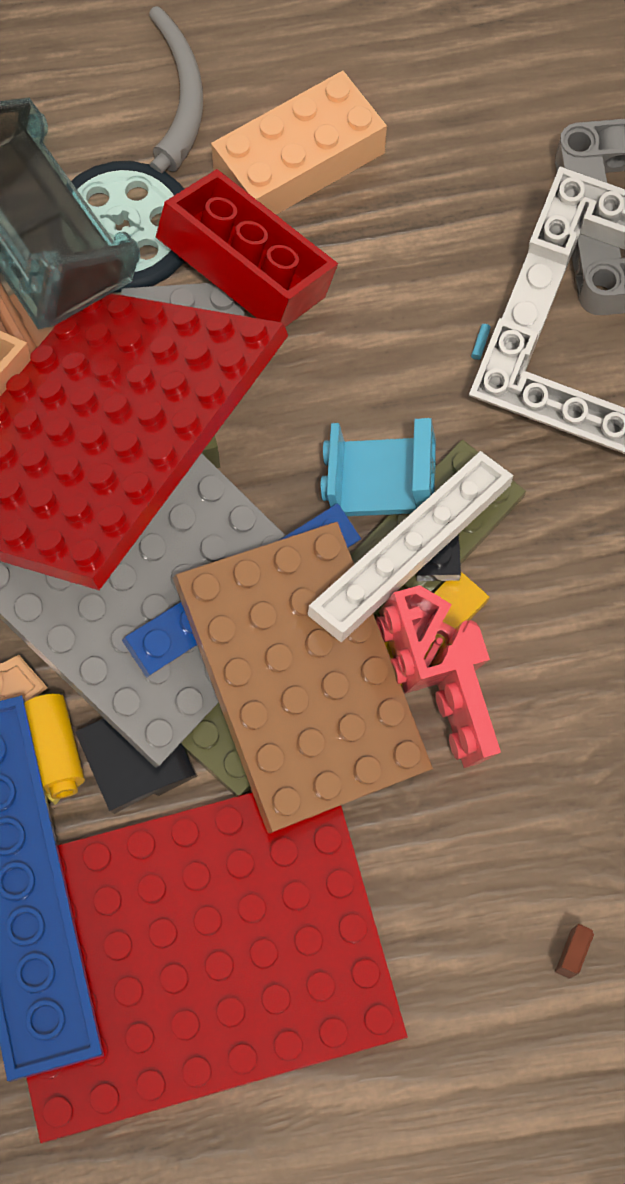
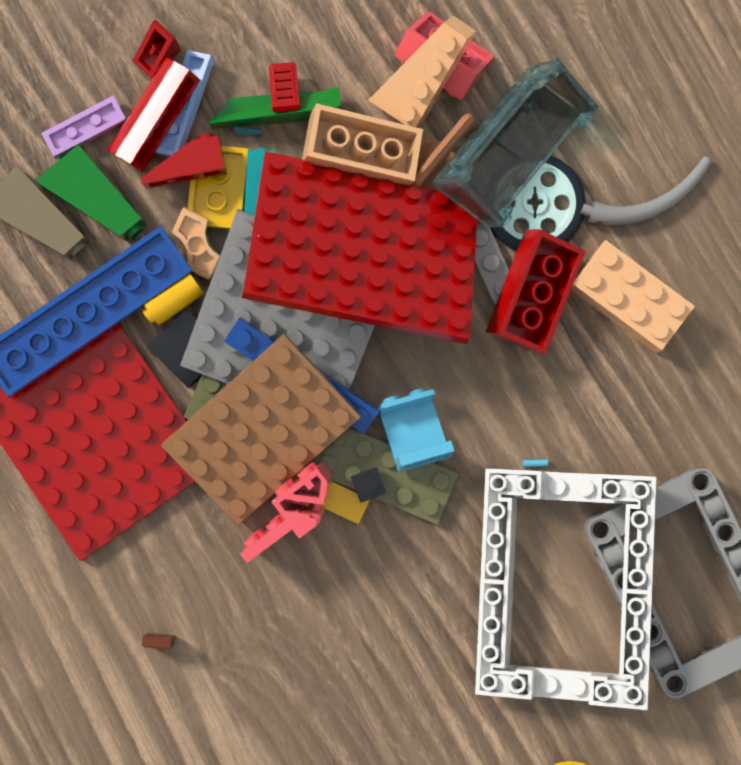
camera: 75 degrees right, 15 degrees up
(409, 546) = (361, 467): white plate -> none

